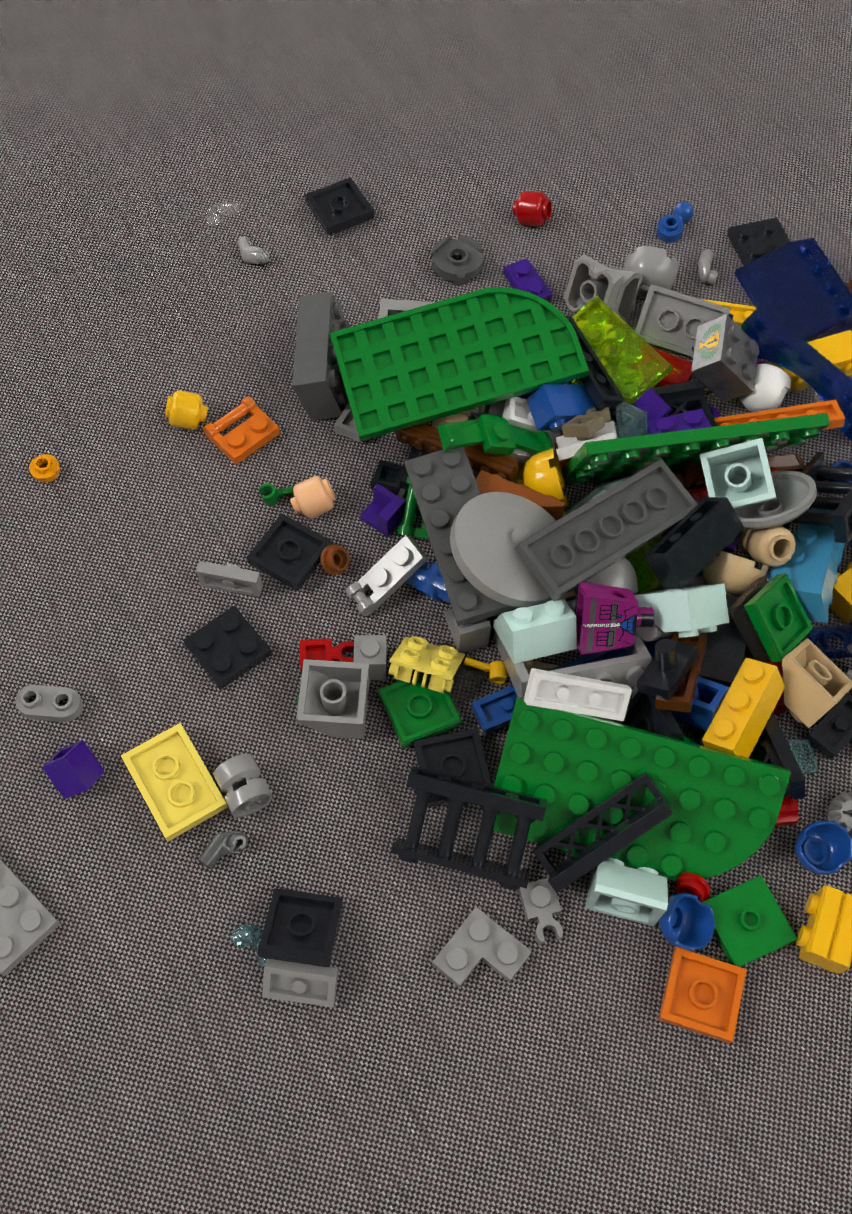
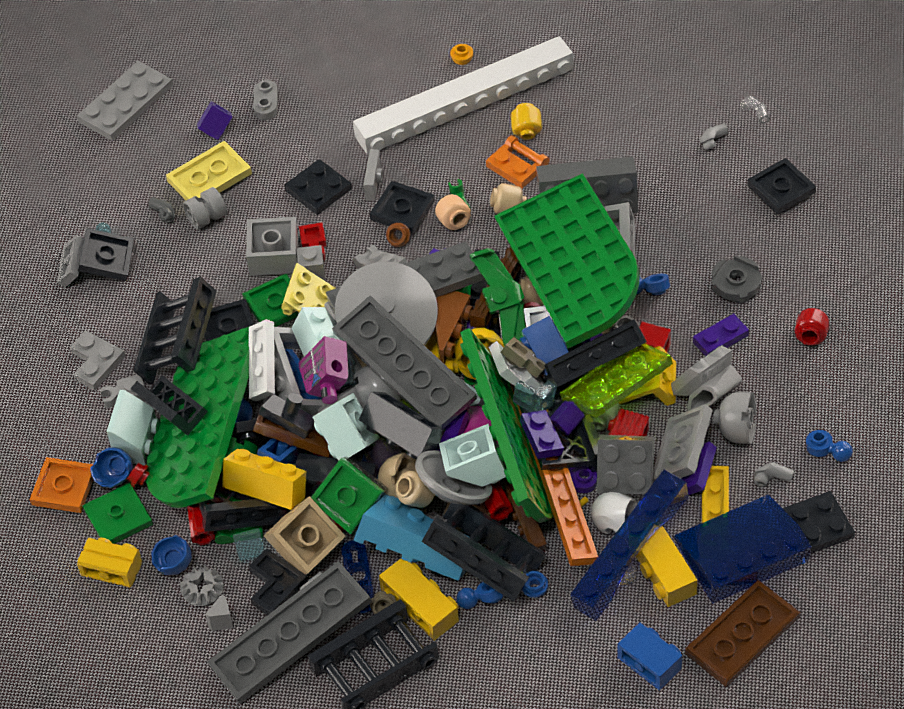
camera: 90 degrees right, 10 degrees down
(124, 476) = (463, 95): none -> white brick
(306, 440) = (505, 197): none -> tan head

